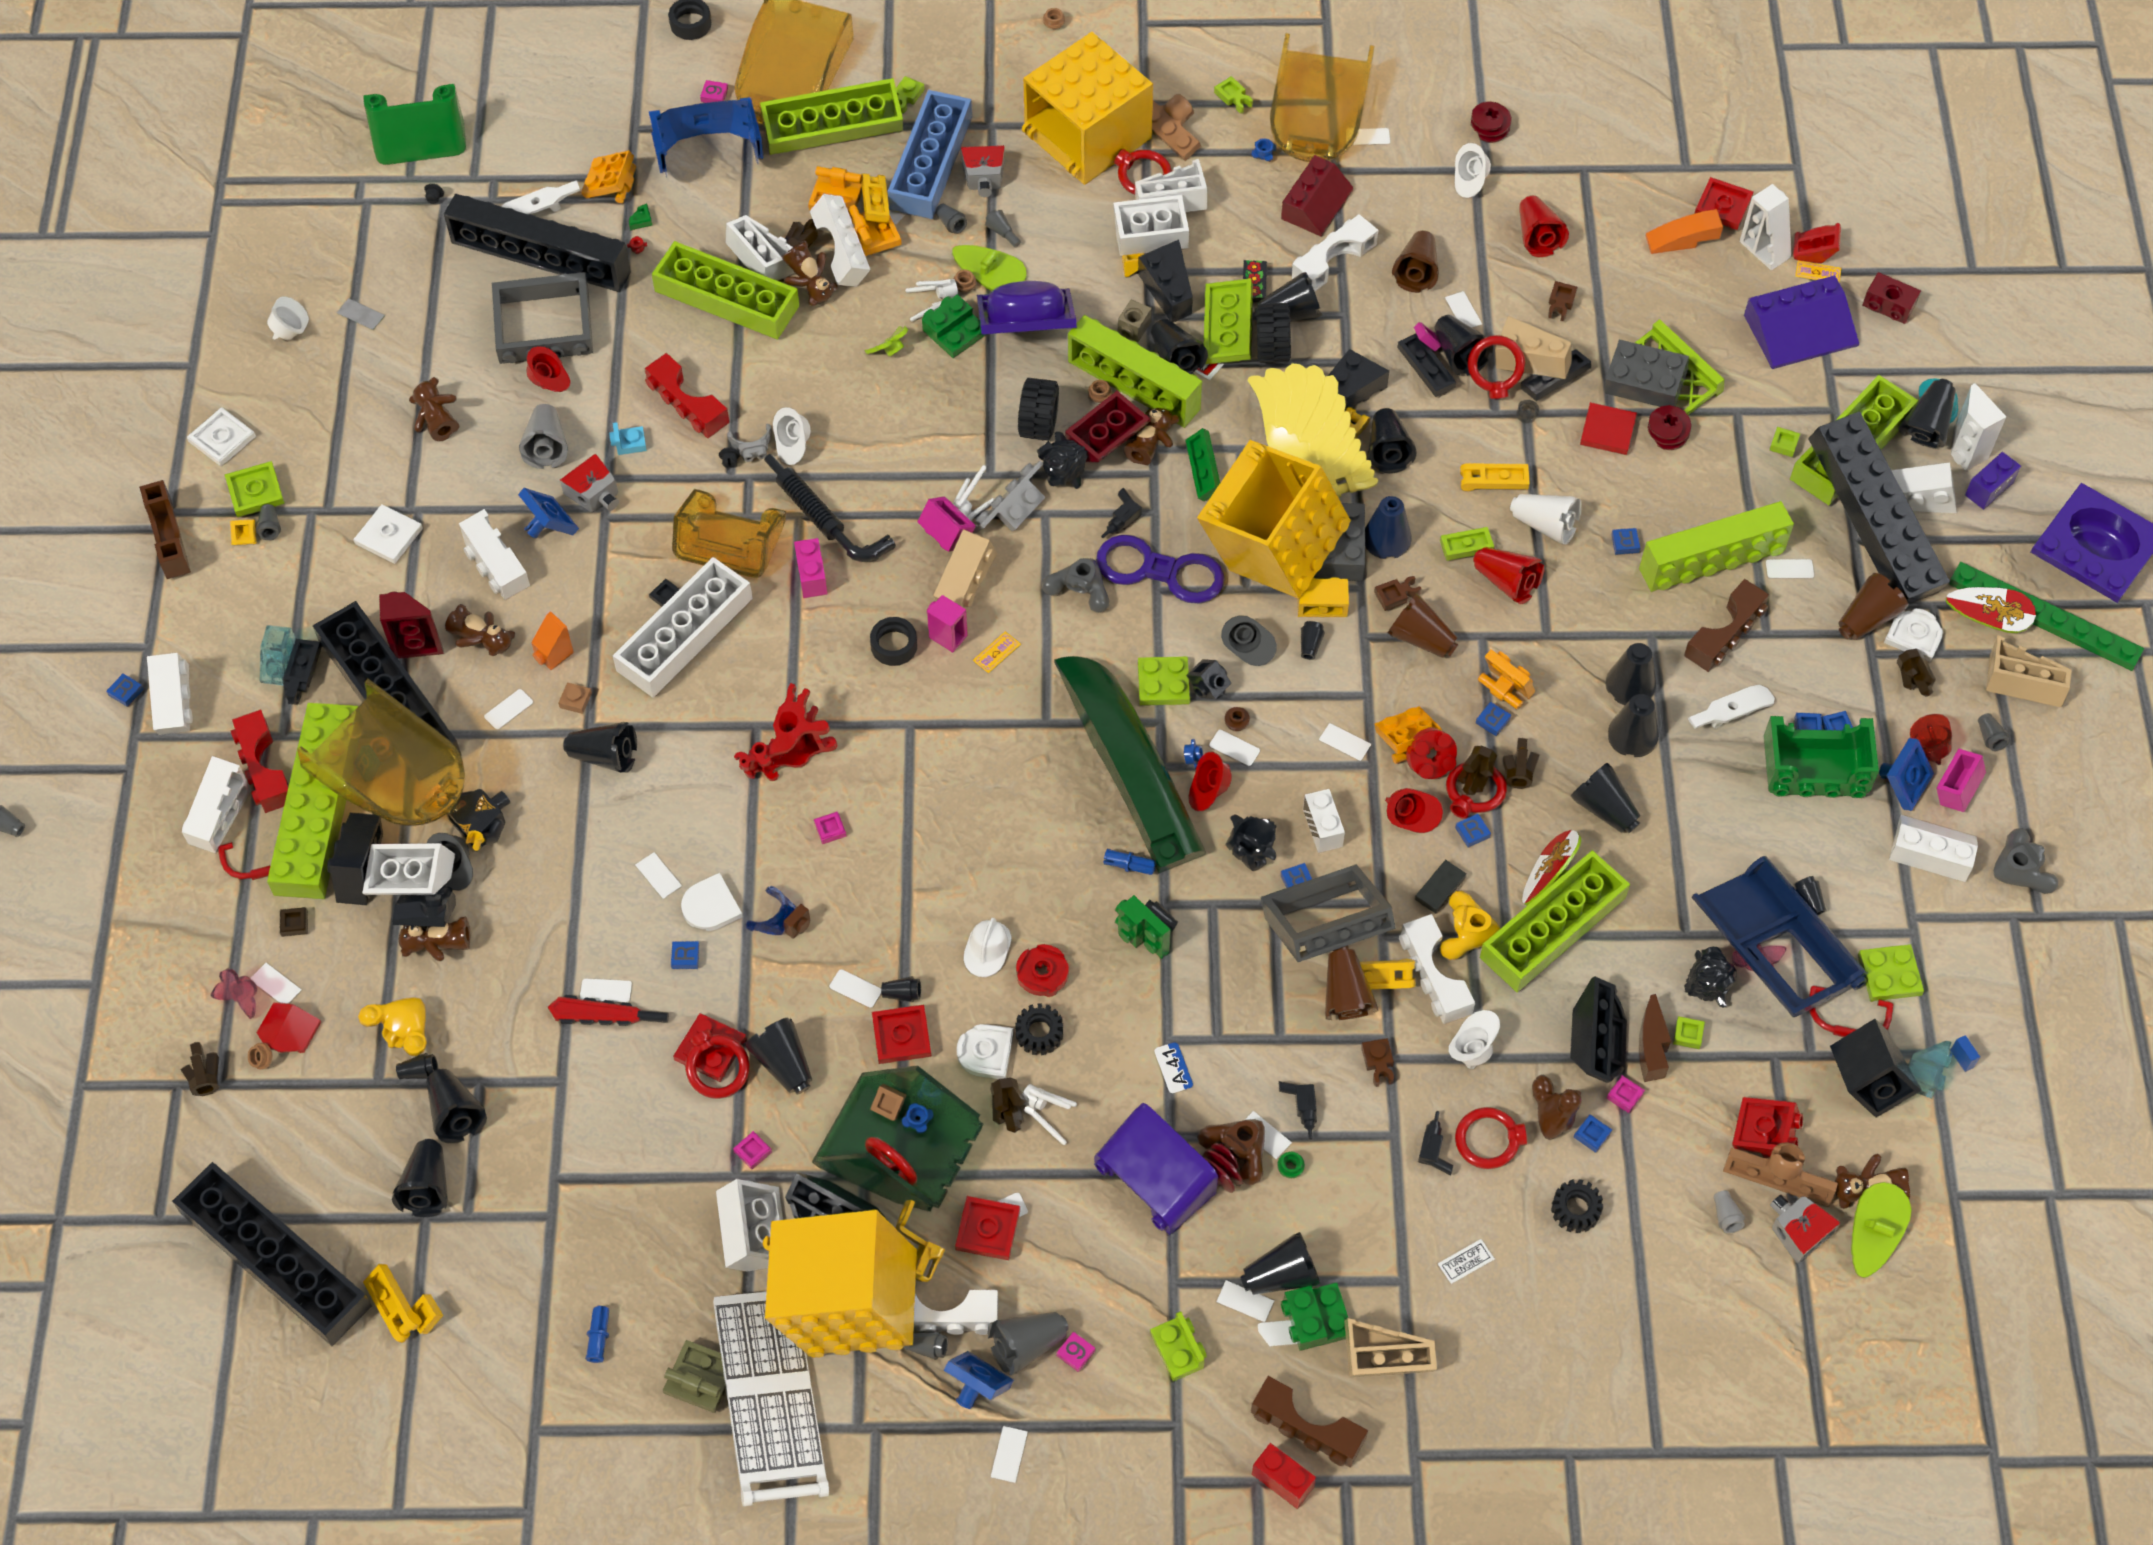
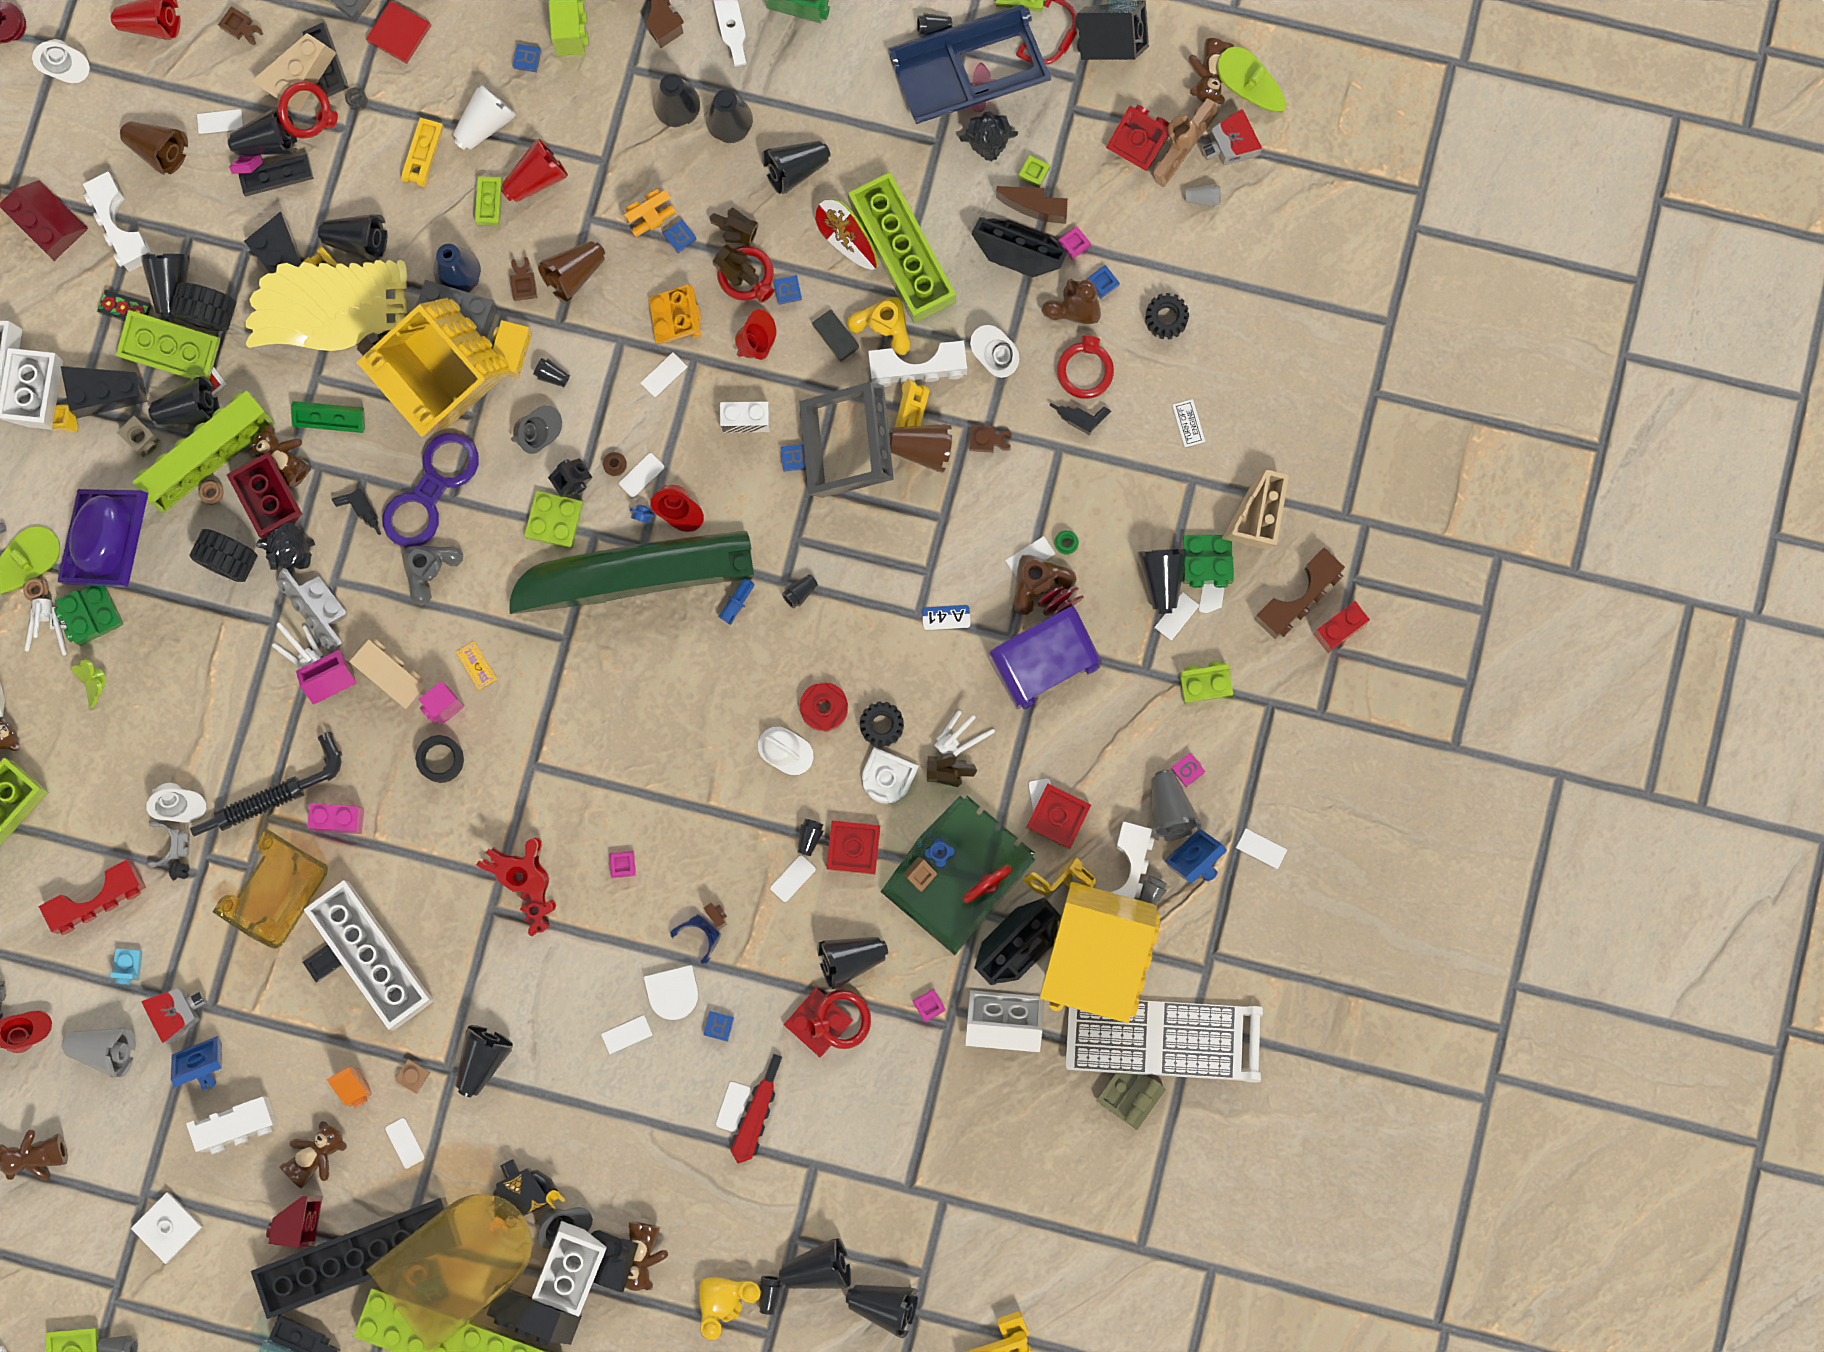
camera: 70 degrees left, 20 degrees up
(597, 1334) = (1068, 1177): blue axle -> none
(1141, 925) = (805, 611): green plate -> none
(1252, 840) = (749, 485): black hair -> none
(1305, 1103) = (1012, 513): black piece -> none
(1442, 762) = (716, 307): red plate -> none

